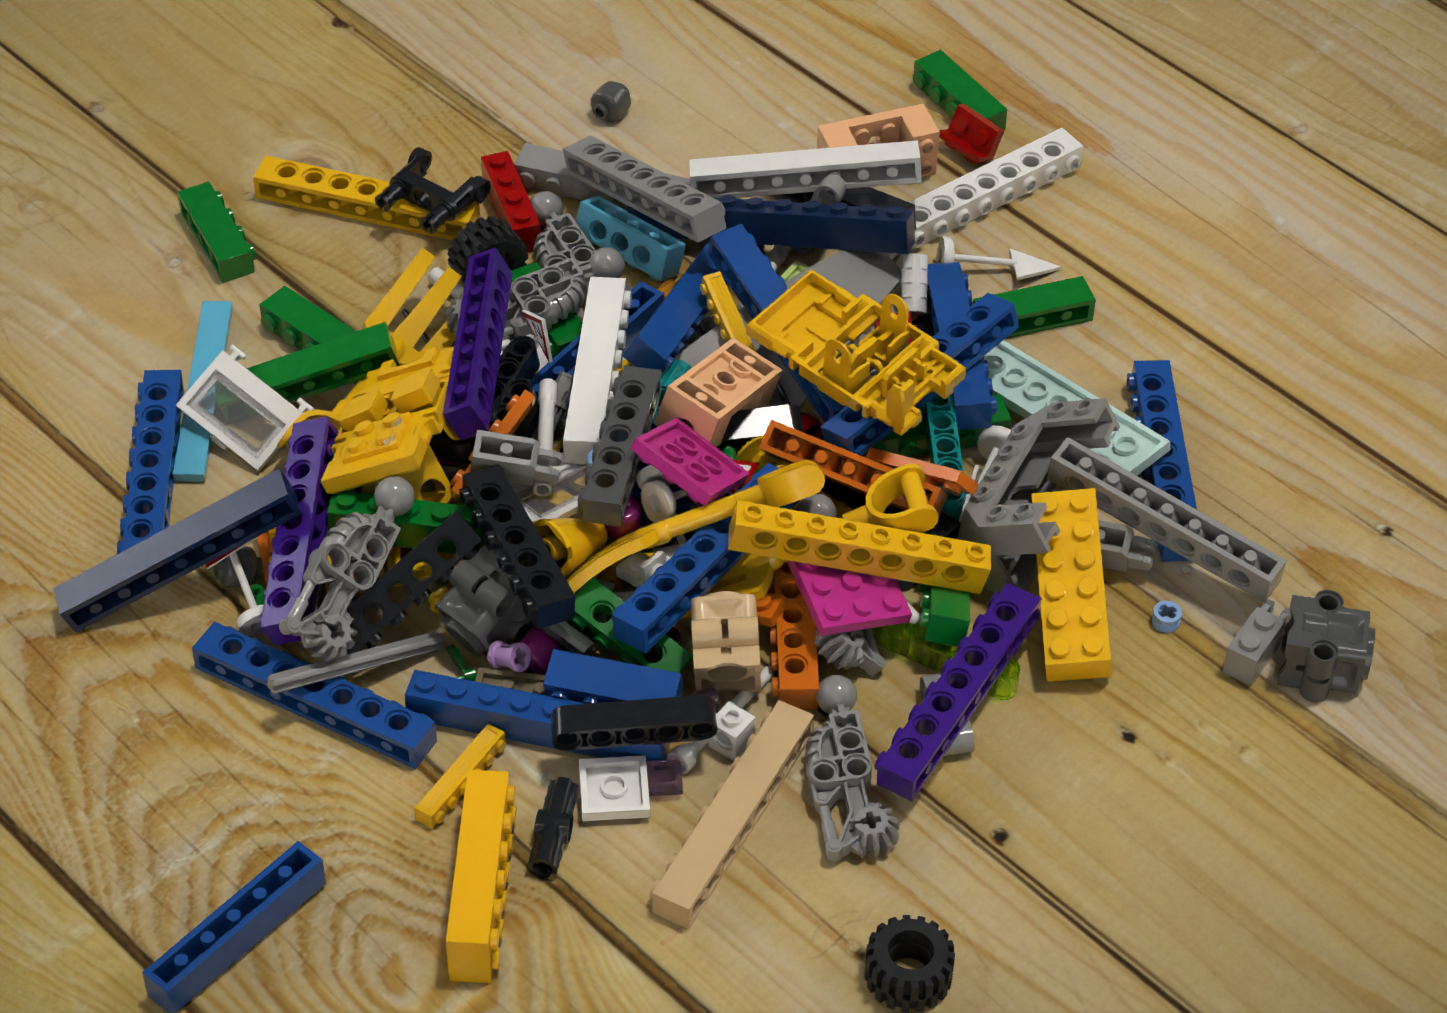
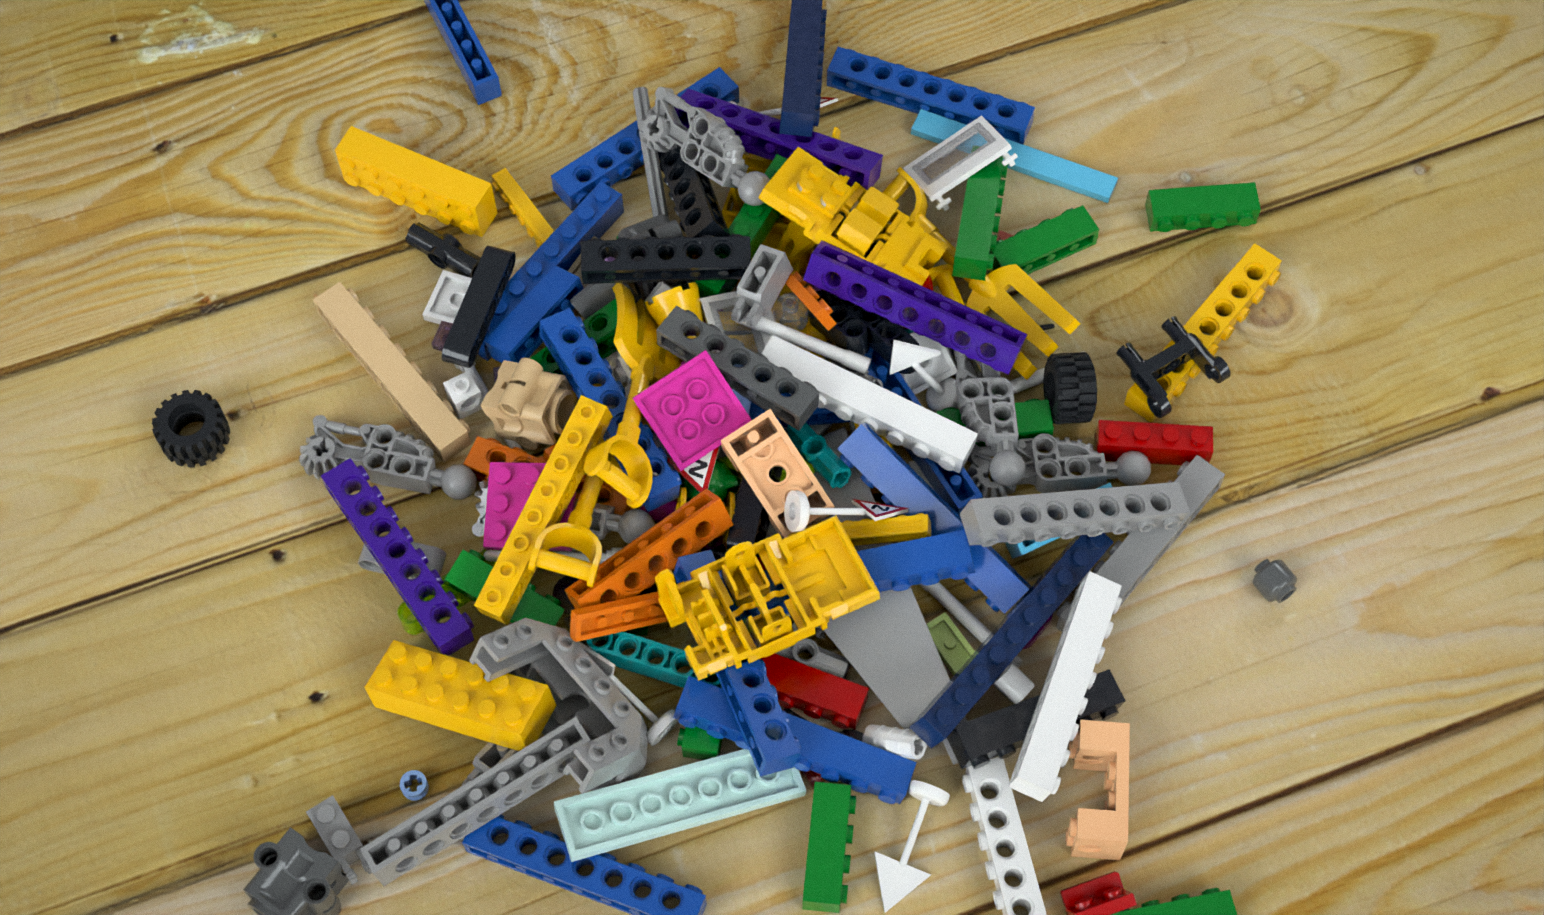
camera: 115 degrees right, 15 degrees up
(759, 347) = (798, 510): none -> white piece

